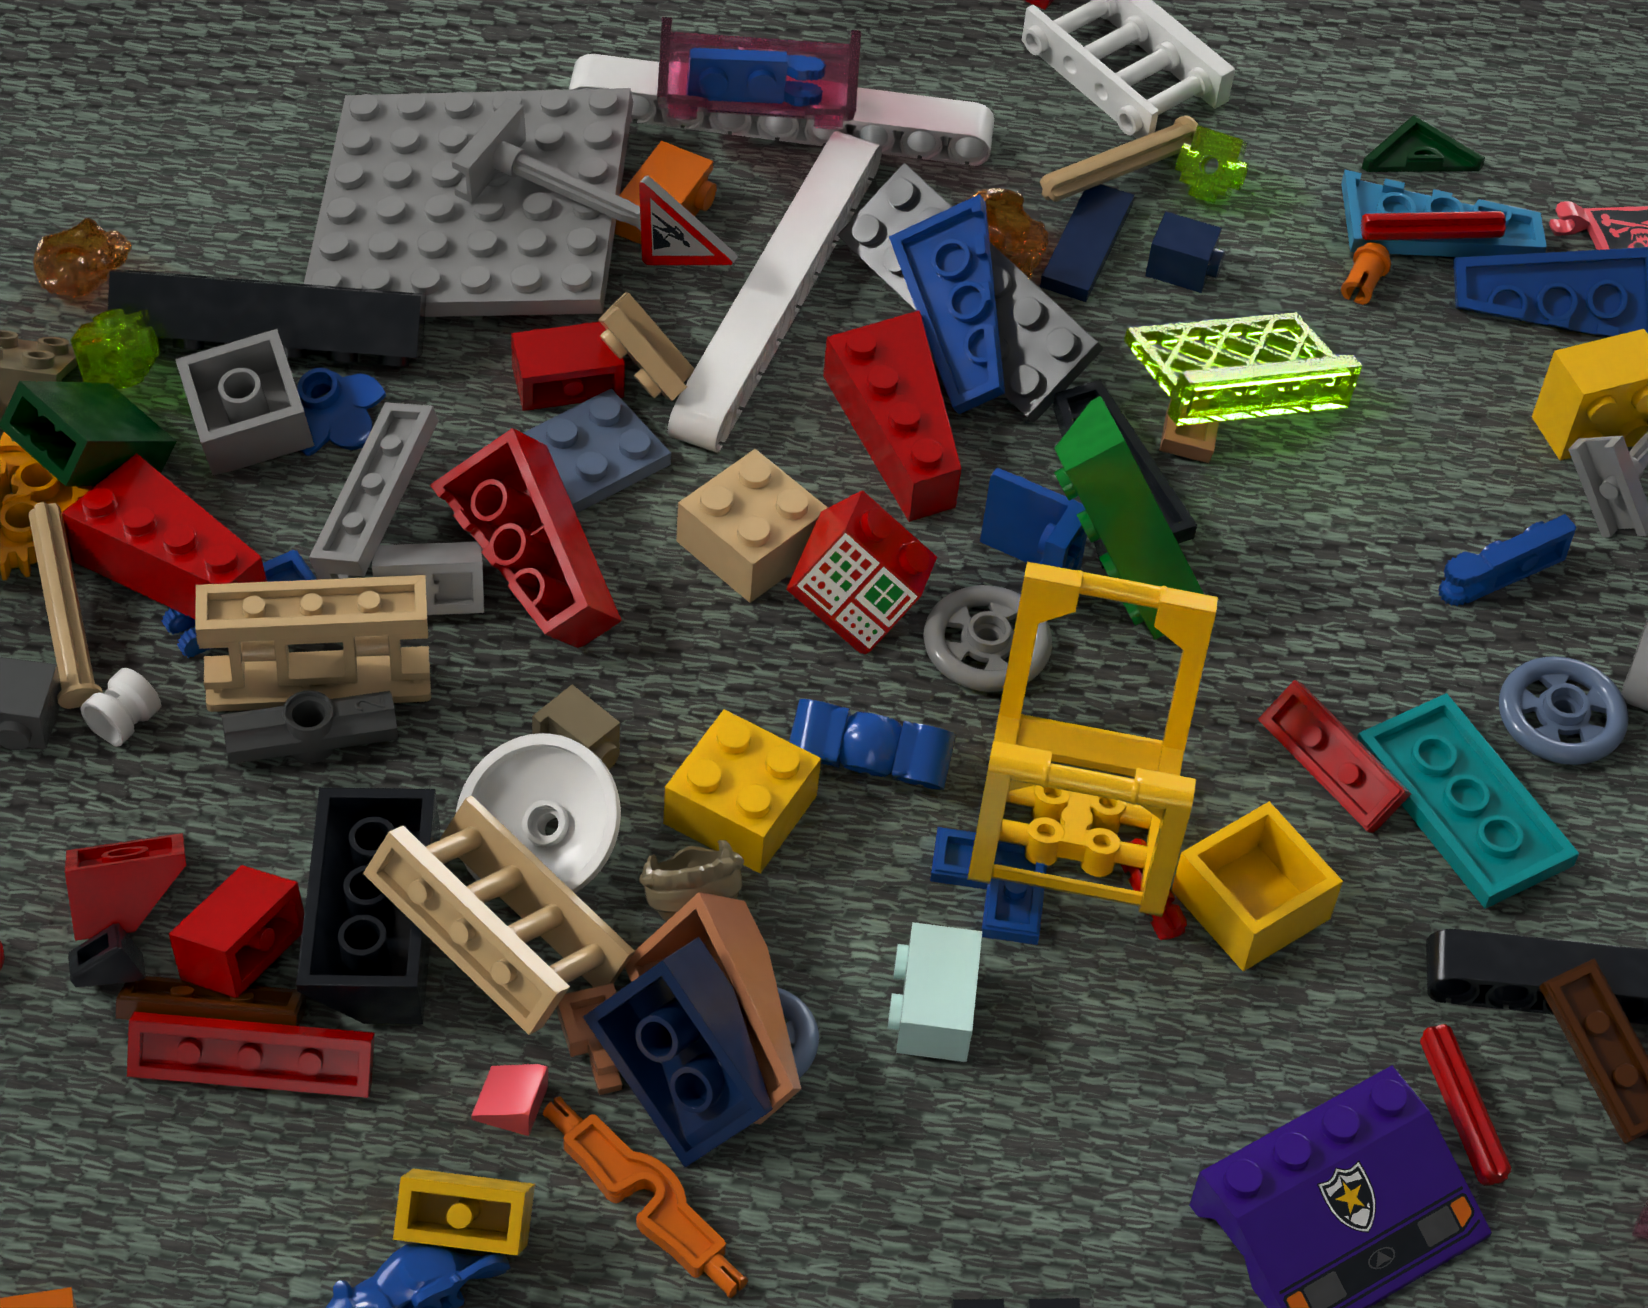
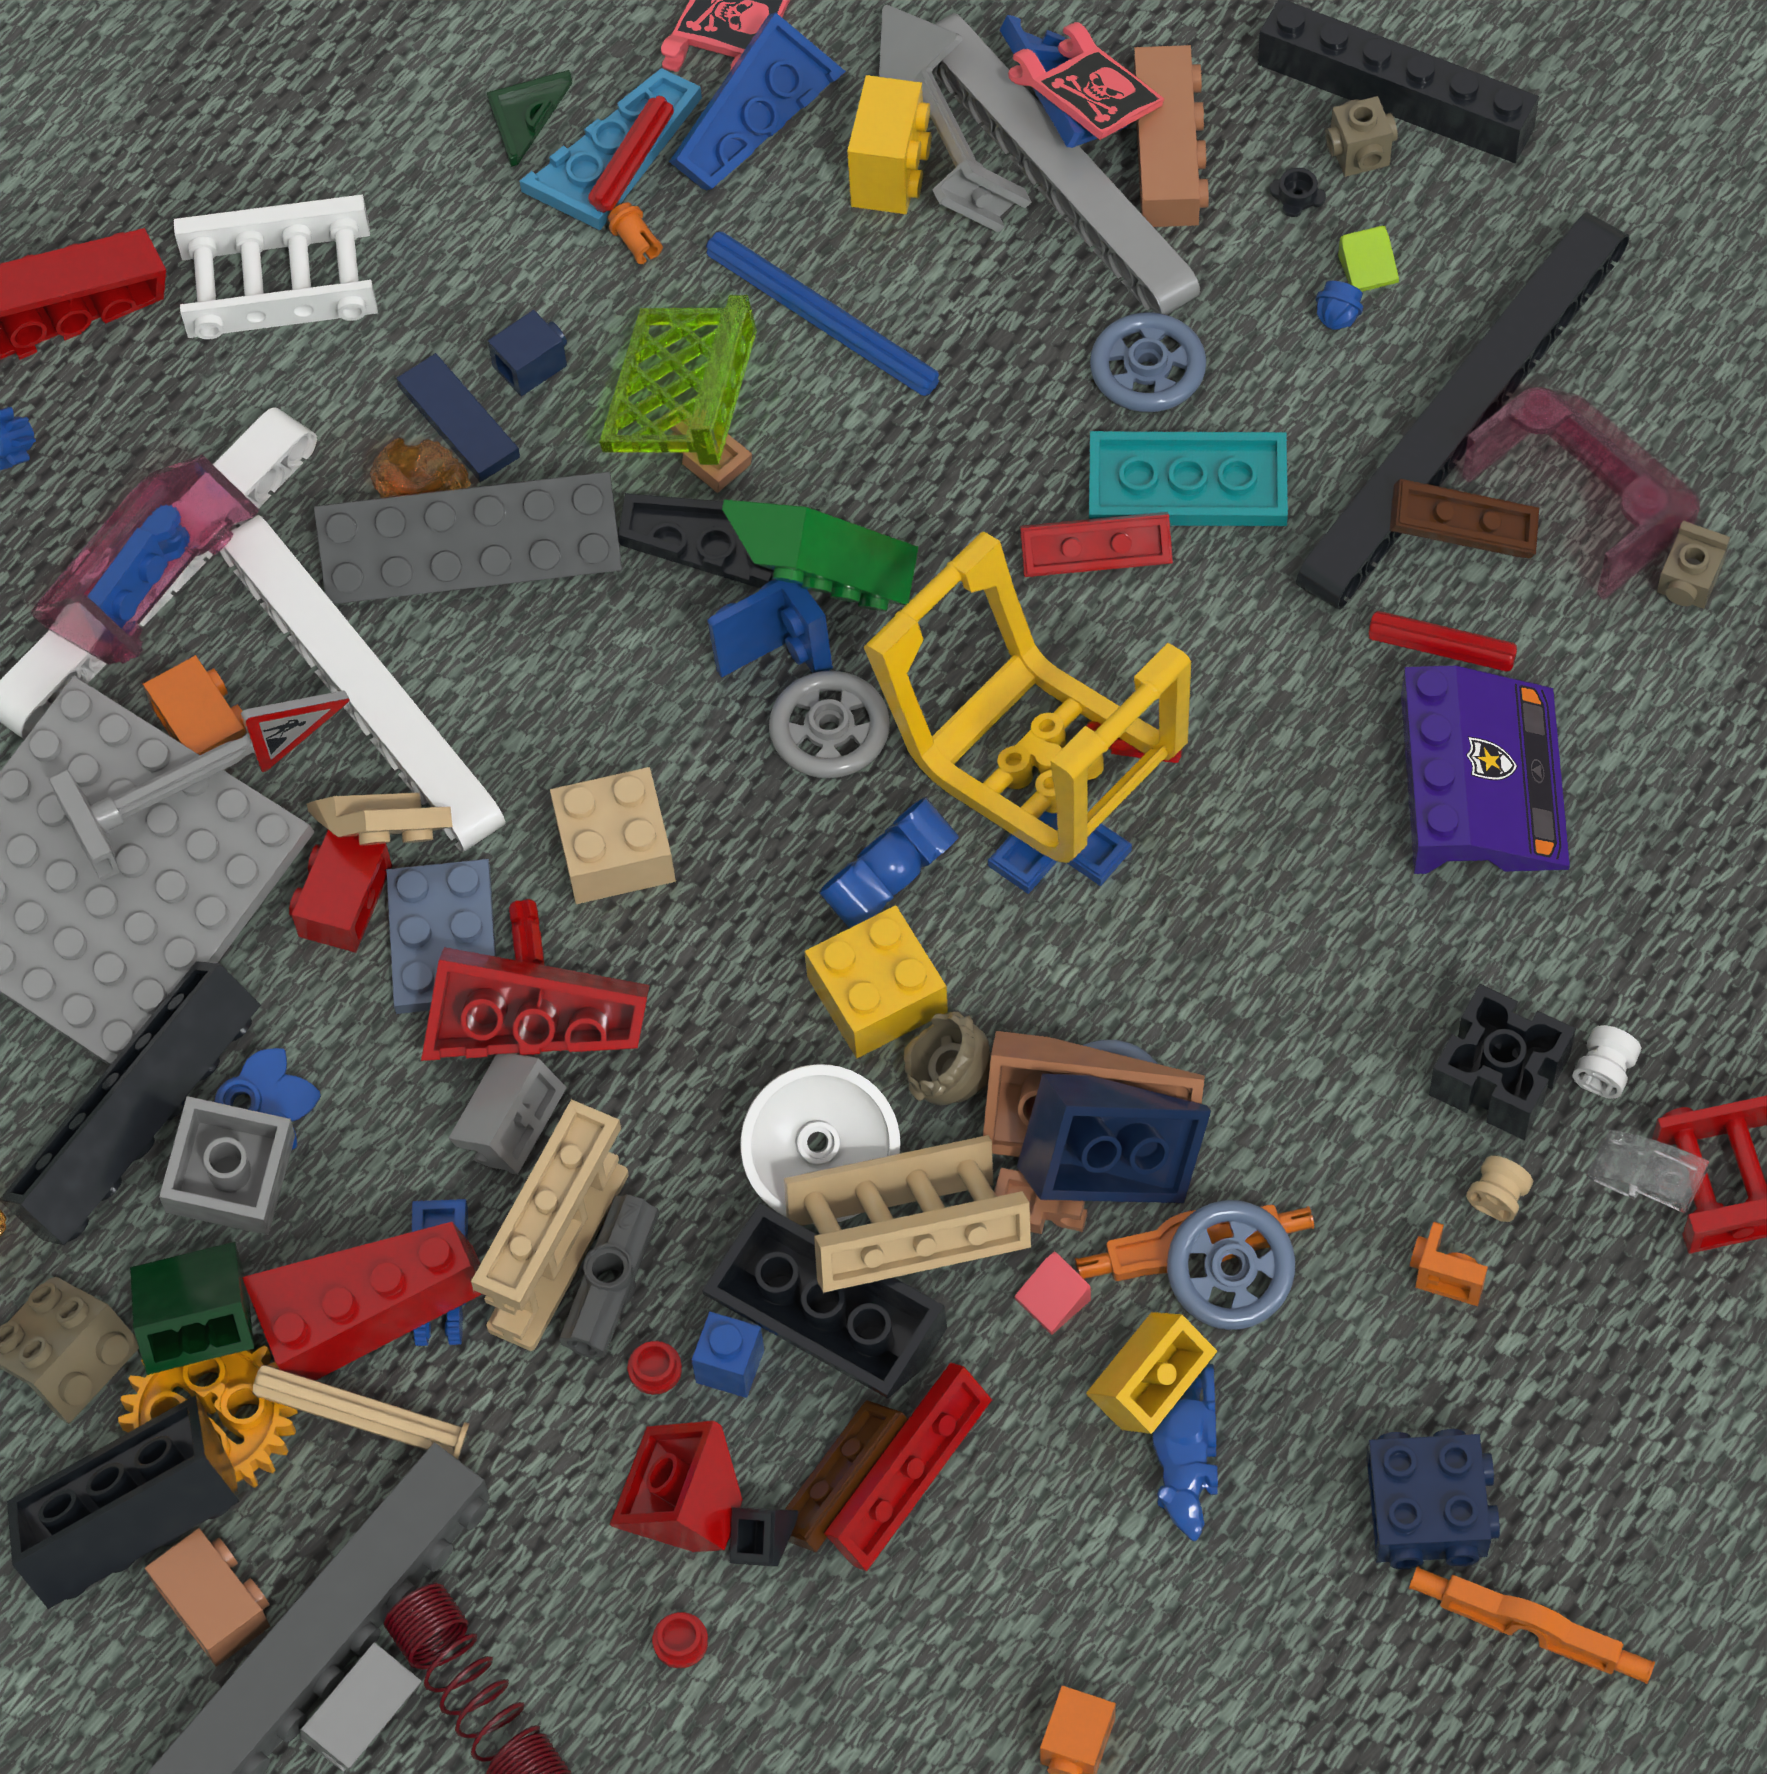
camera: 50 degrees left, 10 degrees up
(115, 349) = (99, 1243): clear neon green brick -> none
(122, 705) = (495, 1415): white wheel -> none
(238, 931) = (792, 1421): red brick -> none
(242, 807) = (654, 1367): none -> red plate
(281, 844) = (728, 1354): none -> blue brick
(373, 491) = (402, 1106): light grey fence -> none
(582, 720) = (741, 1072): dark tan brick -> none
(583, 1216) = (1245, 1307): none -> sand blue plate
(615, 516) = (526, 931): none -> red axle
(860, 571) = (722, 777): slope -> none
(897, 409) = (562, 661): red wedge -> none
(938, 991) = (1148, 940): light aqua brick -> none
(953, 287) = (474, 547): blue wing -> none
(1118, 160) = (396, 331): tan axle -> none
(1205, 147) = (451, 274): clear neon green brick -> none
(1256, 886) = (1213, 644): yellow piece -> none
(1402, 445) = (822, 313): none -> blue axle
(1506, 562) = (988, 316): blue hinge -> none

